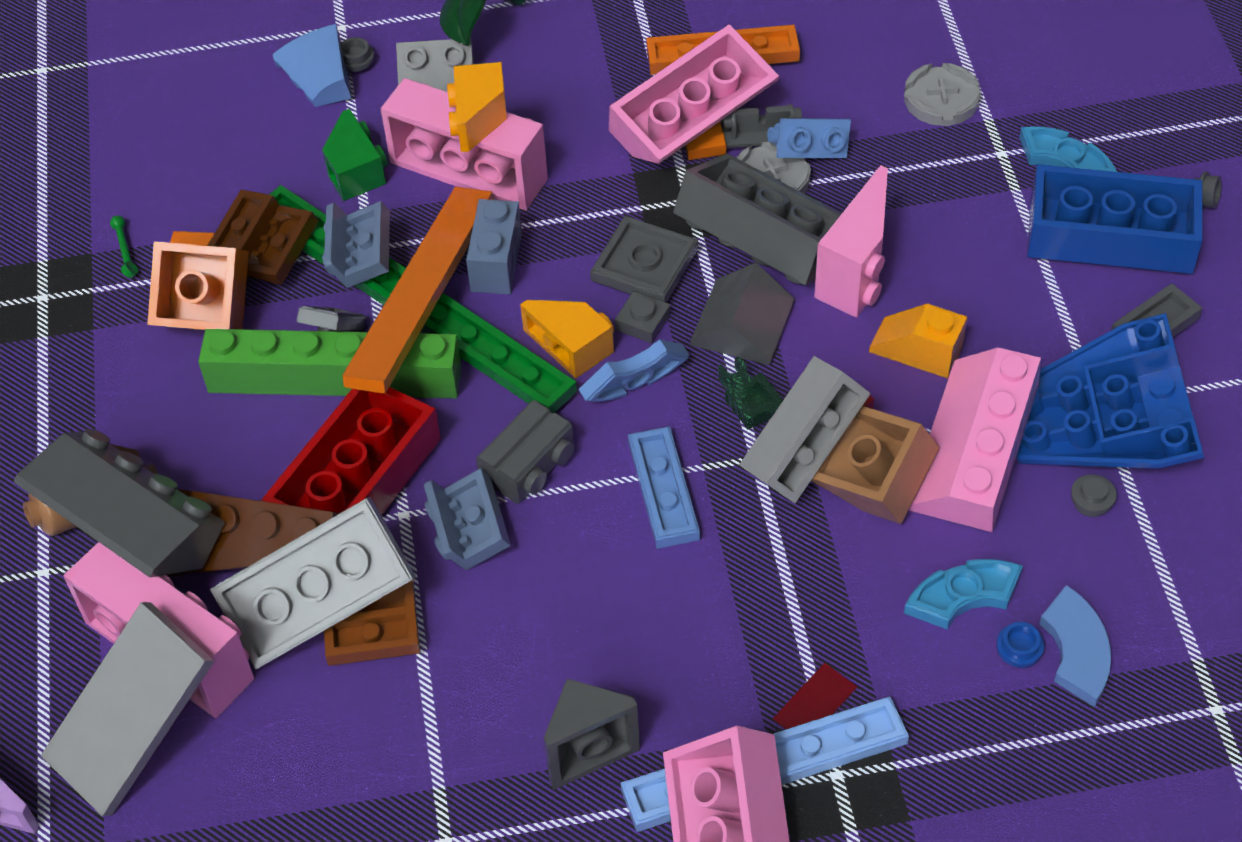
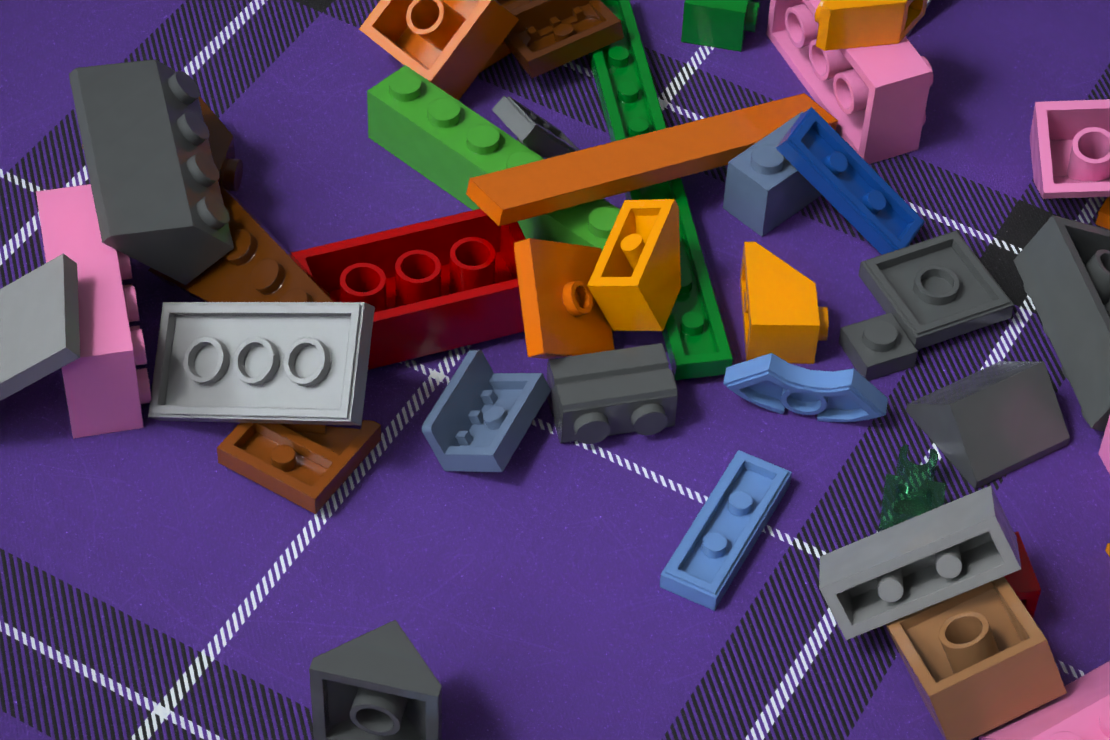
camera: 35 degrees right, 5 degrees down
(356, 243) = (632, 76): sand blue bracket -> none
(456, 414) = (555, 299): none -> orange plate
(481, 360) = (639, 266): none -> light orange slope
(545, 226) = (849, 183): none -> blue tile

